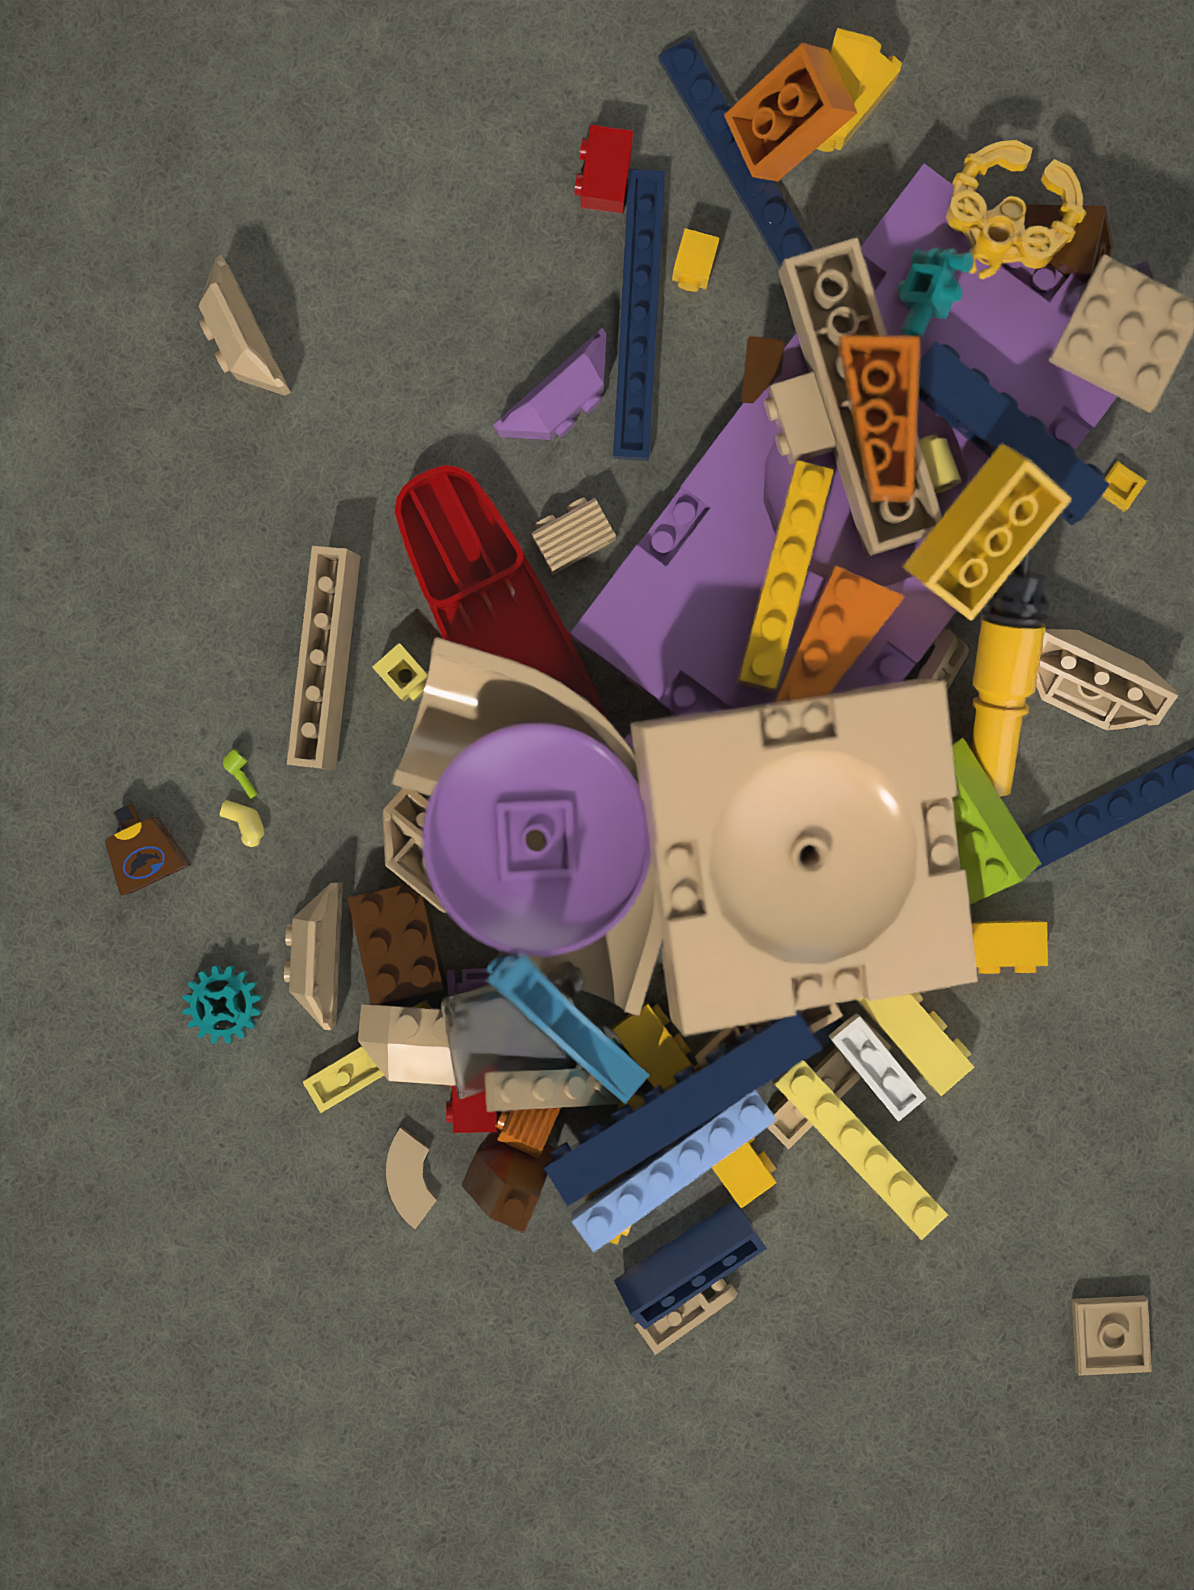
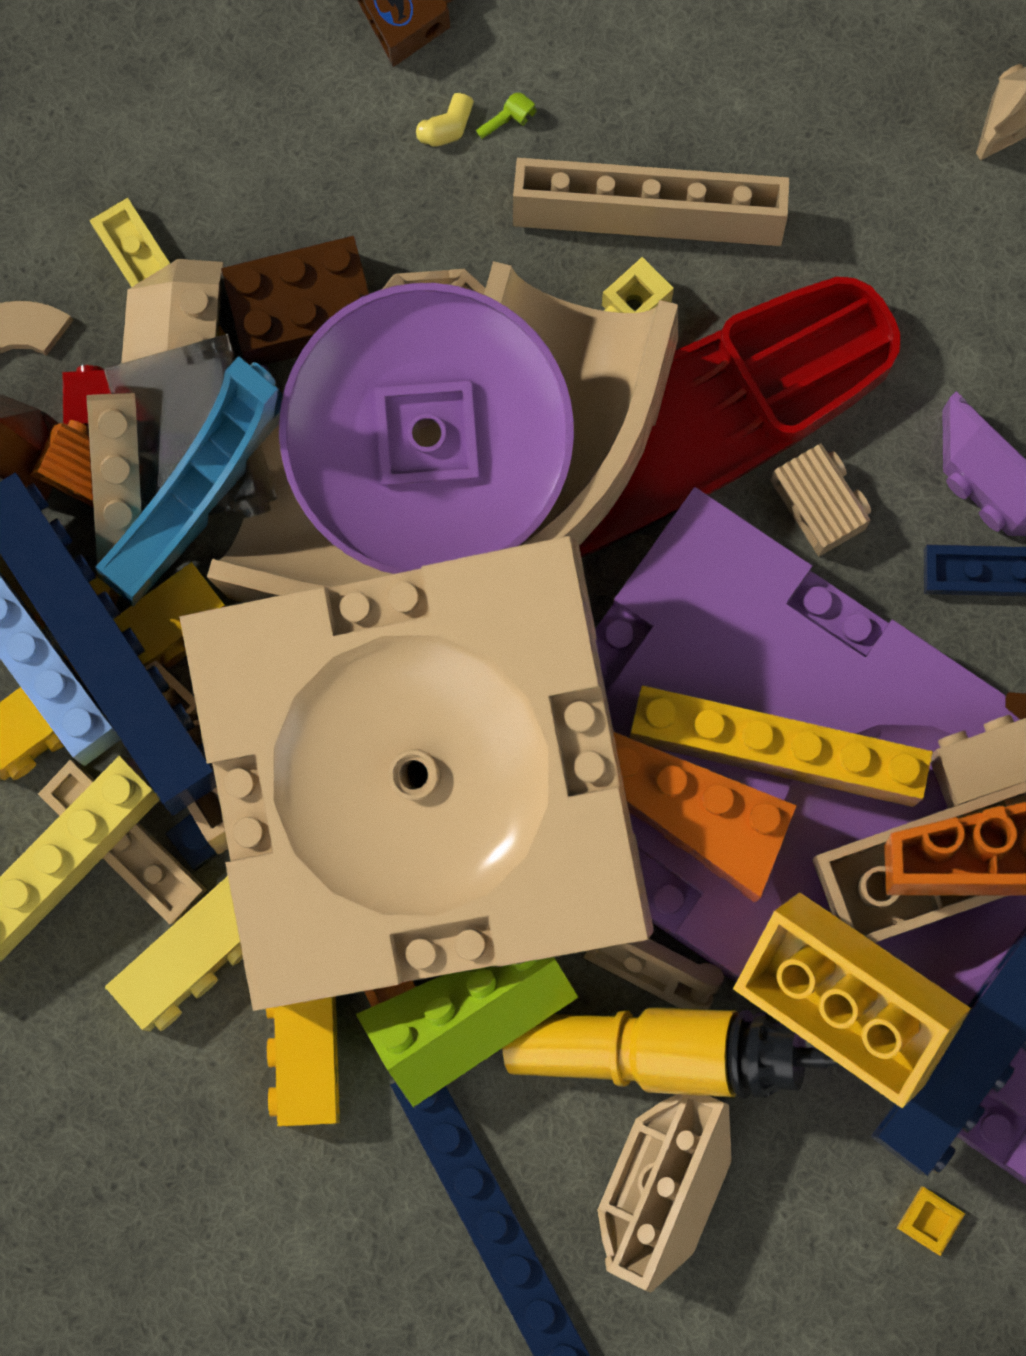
camera: 90 degrees right, 10 degrees down
(208, 995) = (225, 121): teal gear -> none
(316, 954) = (282, 209): tan wedge -> none
(877, 1067) = (142, 901): white plate -> none
(939, 463) = (940, 945): light yellow brick -> none

